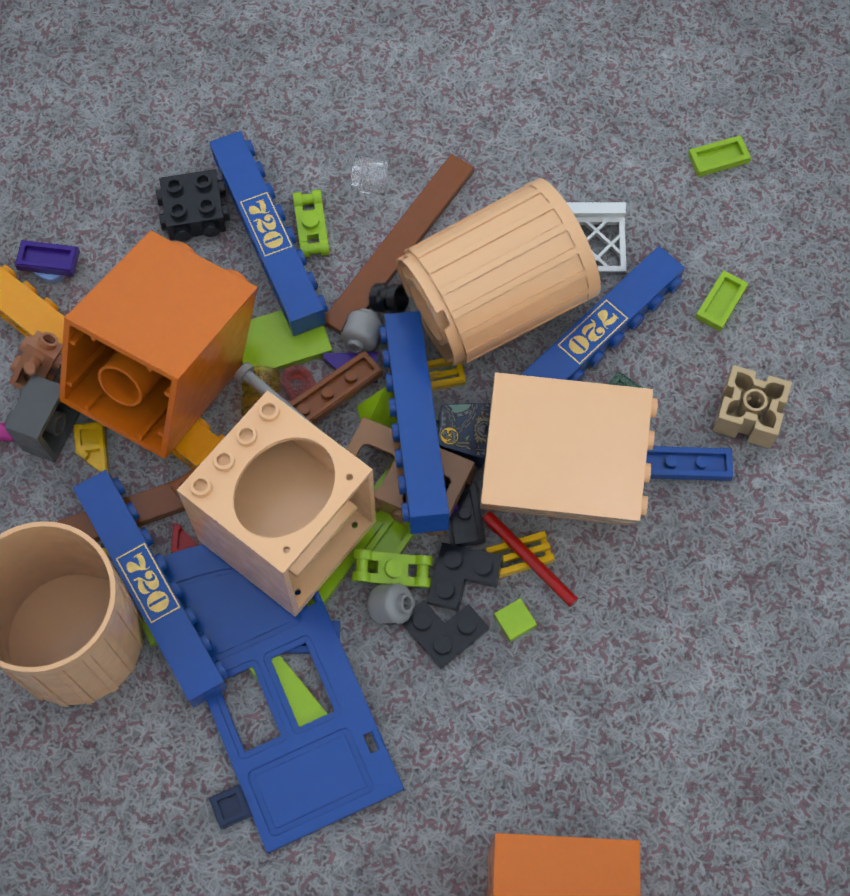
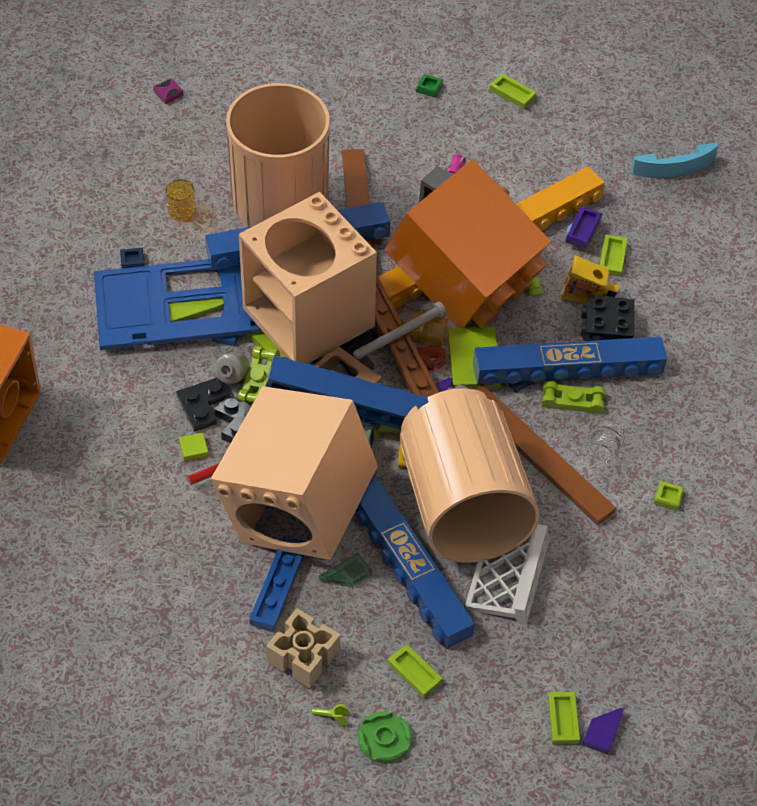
camera: 105 degrees right, 15 degrees down
(79, 224) = (613, 254): none -> lime tile
(115, 768) = (180, 200): none -> clear yellow wheel
(138, 222) = (587, 280): none -> yellow torso
(414, 111) = (669, 495): none -> lime tile
(718, 120) = (602, 731): none -> dark purple tile
(801, 315) = (382, 746): none -> bright green tile
(805, 365) = (337, 712): none -> lime hand

